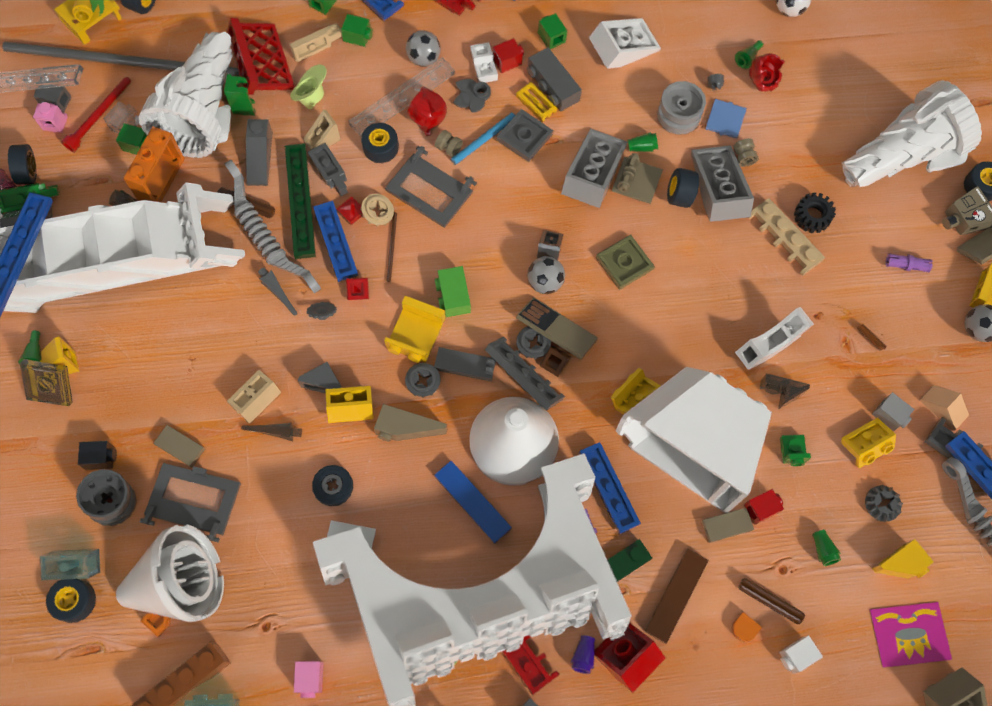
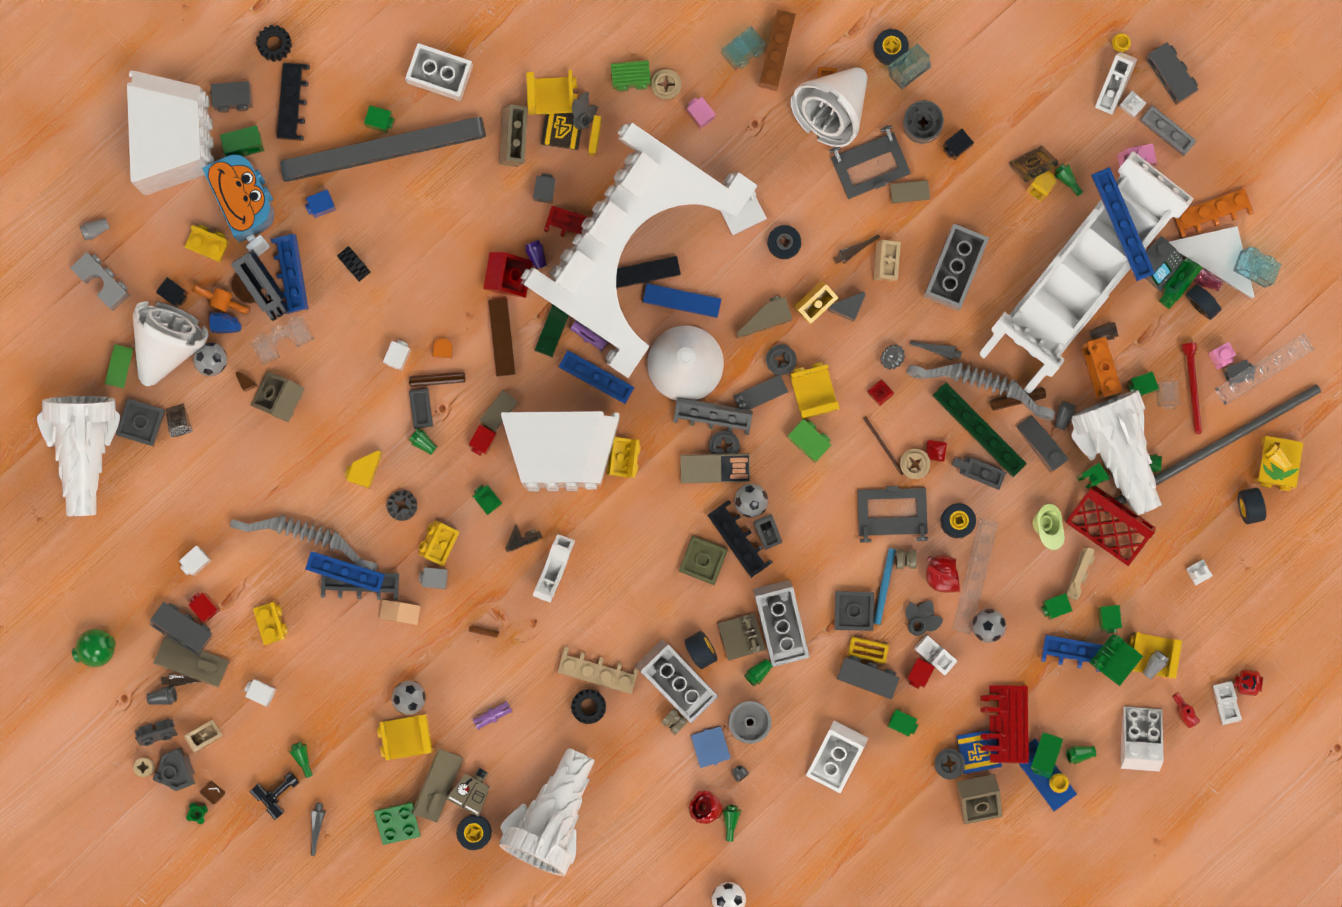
camera: 140 degrees right, 15 degrees up
(197, 343) = (956, 267): none -> light grey brick
(215, 163) = (1064, 415): none -> dark grey cone
(322, 131) = (1008, 495): tan slope -> none
(335, 241) = (926, 417): blue plate -> none
(481, 552) = (647, 272): none -> black tile
(555, 361) = (699, 443): reddish brown slope -> none
(582, 255) = (737, 540): none -> black hinge
(806, 584) = (421, 408): none -> dark grey tile
(910, 634) = (331, 425): dark pink sticker -> none

